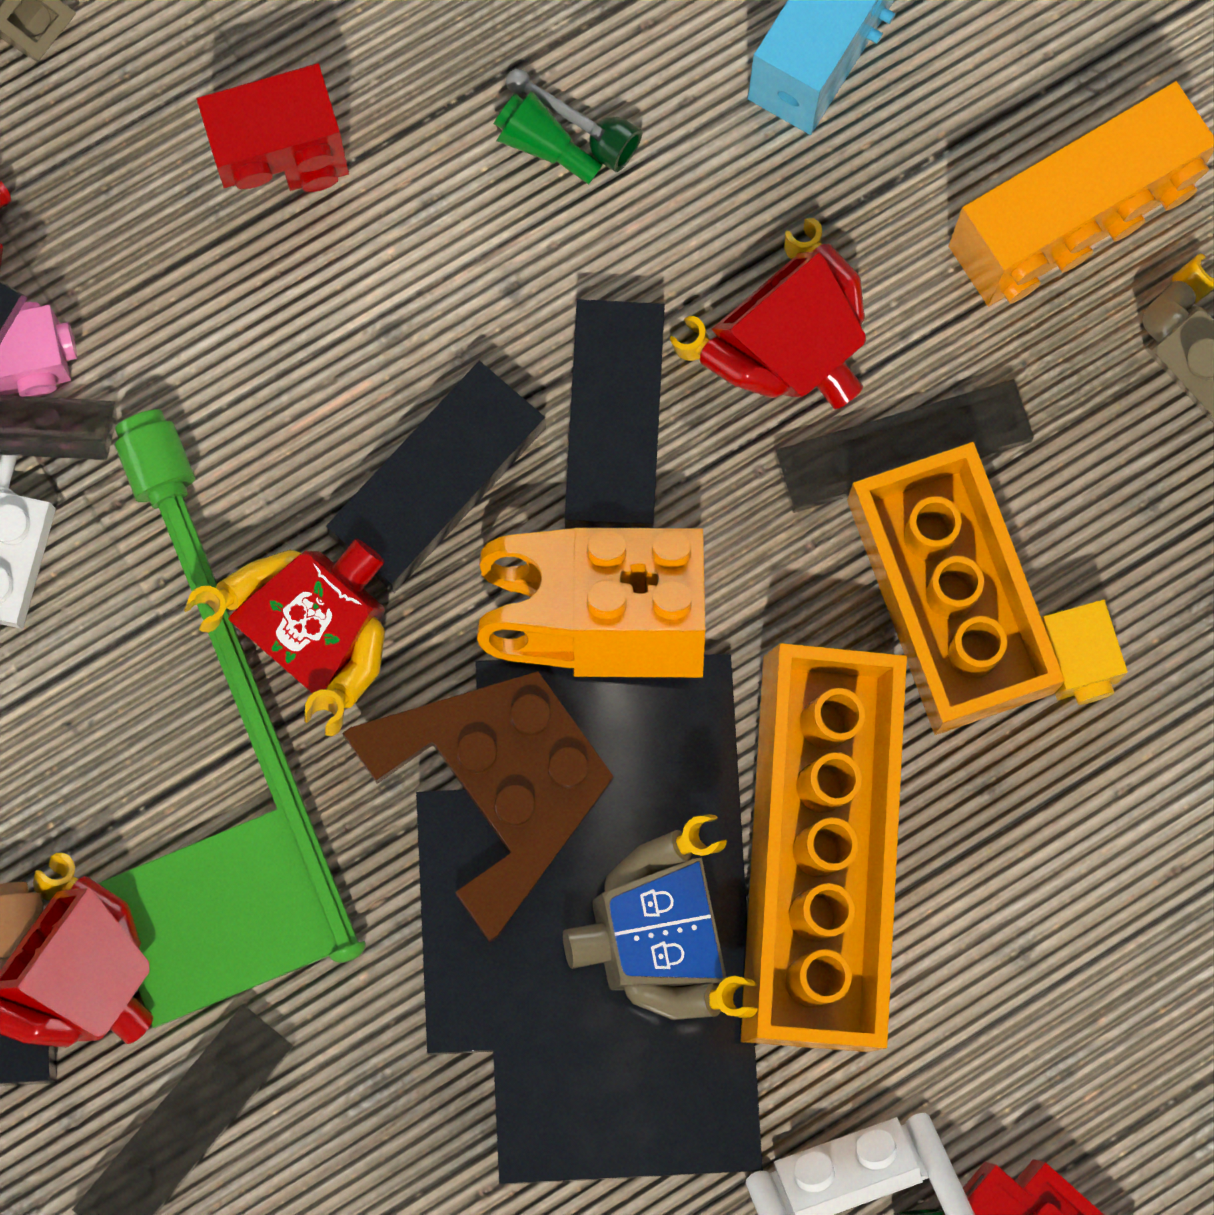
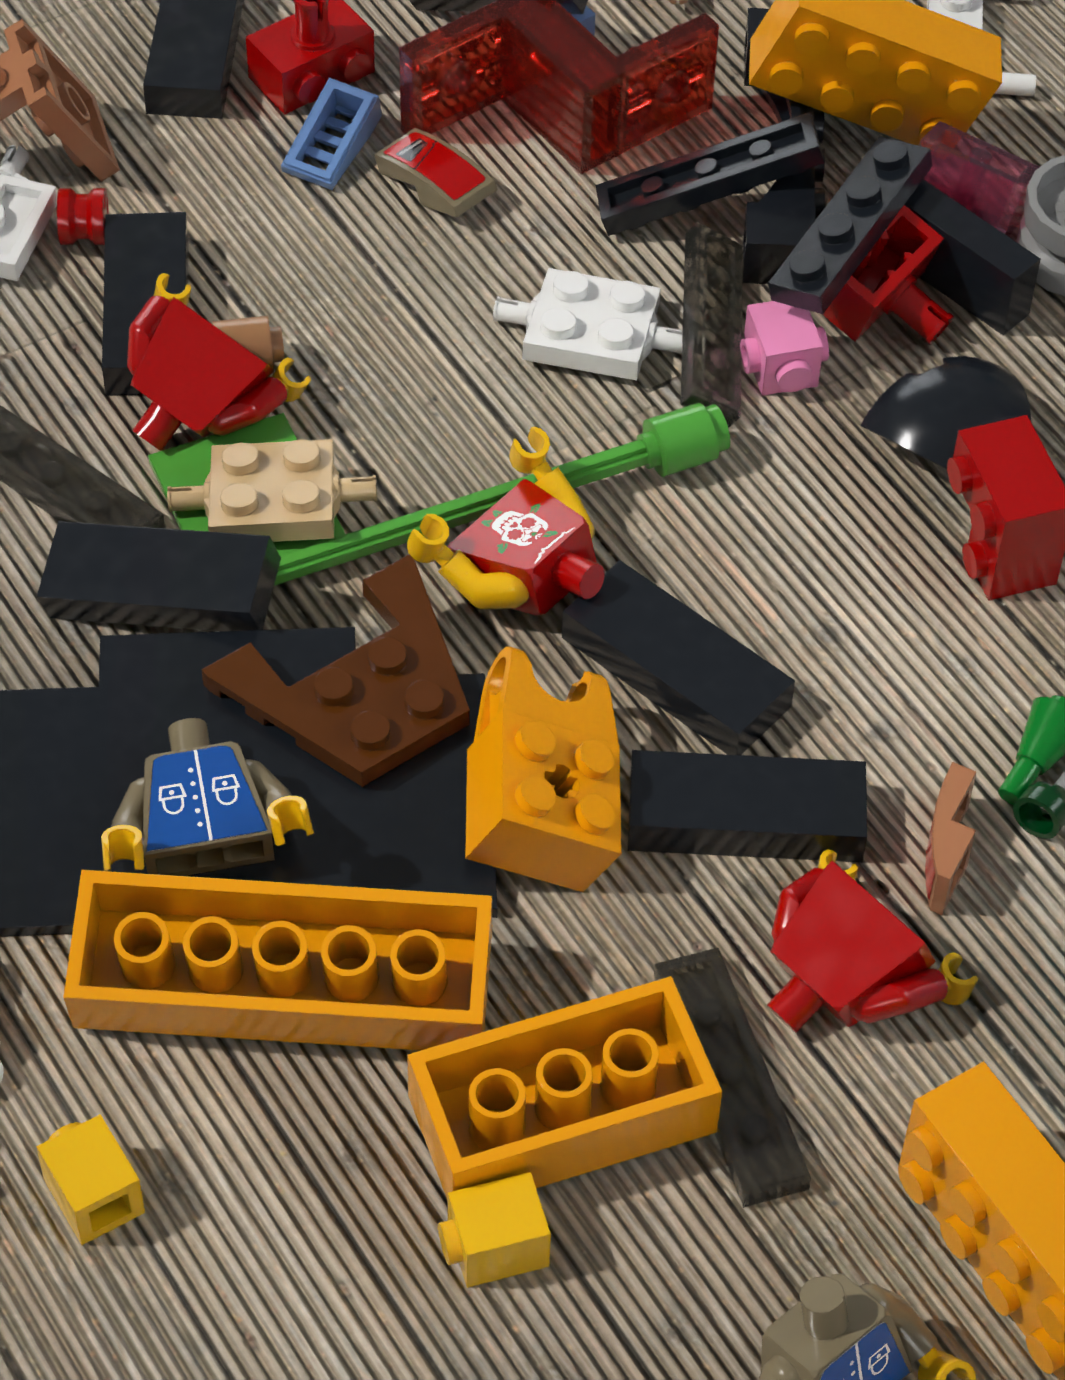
camera: 90 degrees right, 25 degrees down
(146, 174) = (930, 407): none -> black brick
(227, 885) = (273, 490): none -> tan plate
(349, 998) = (159, 577): none -> black piece
(674, 236) = (949, 840): none -> nougat slope
(1040, 1020) = (90, 1178): none -> yellow brick

